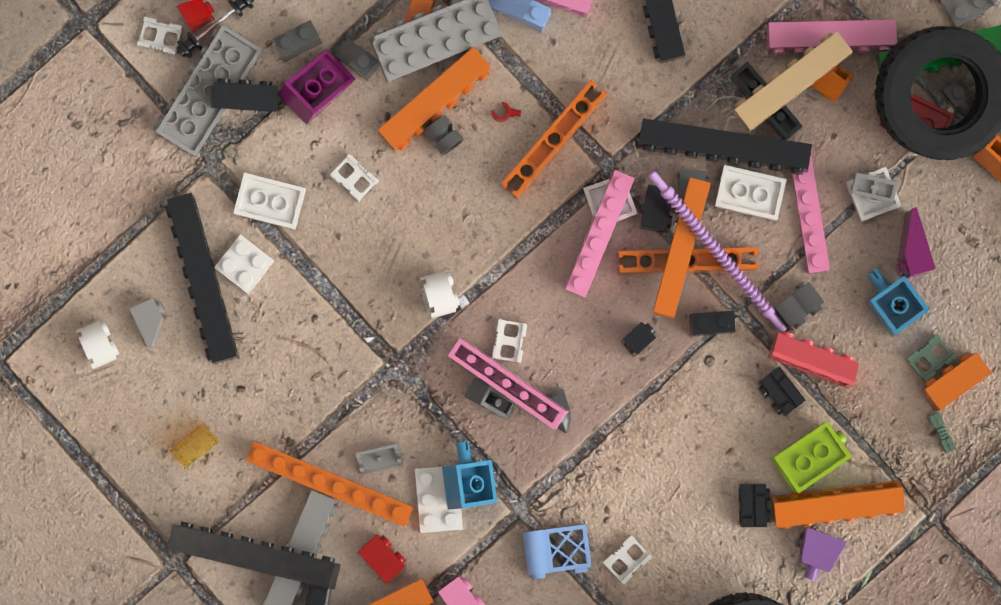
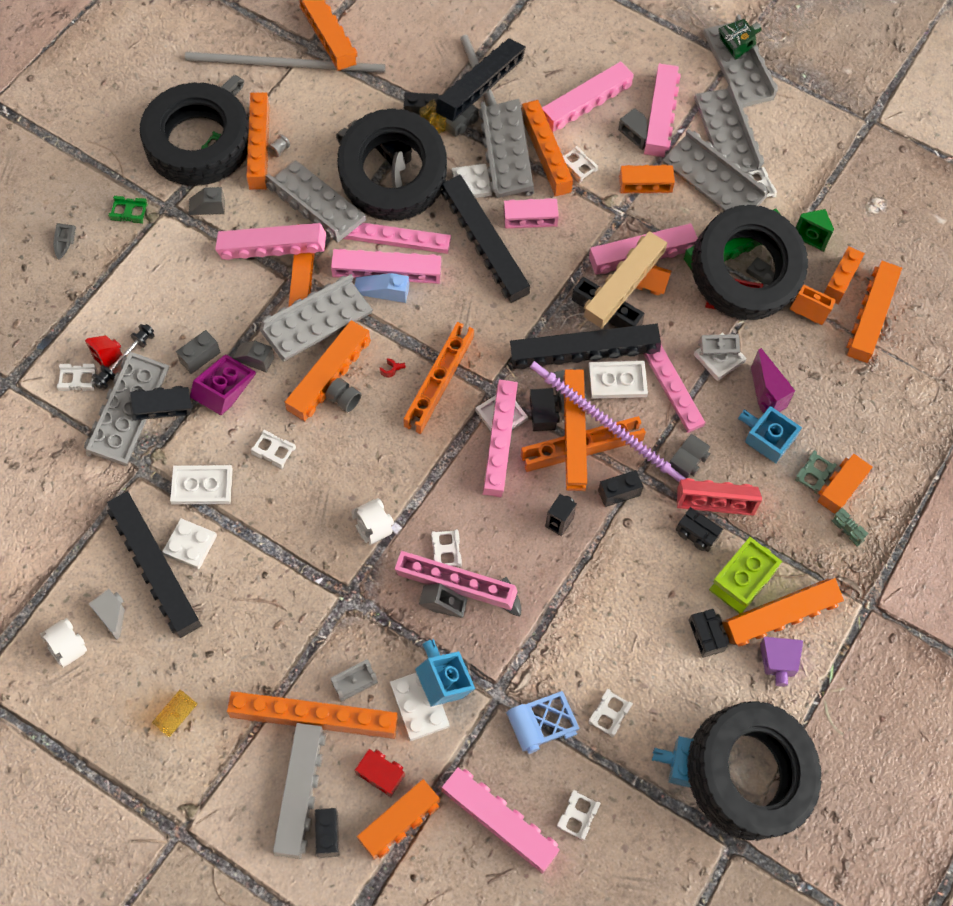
camera: 20 degrees left, 20 degrees down
(254, 556) = (254, 799): black brick -> none

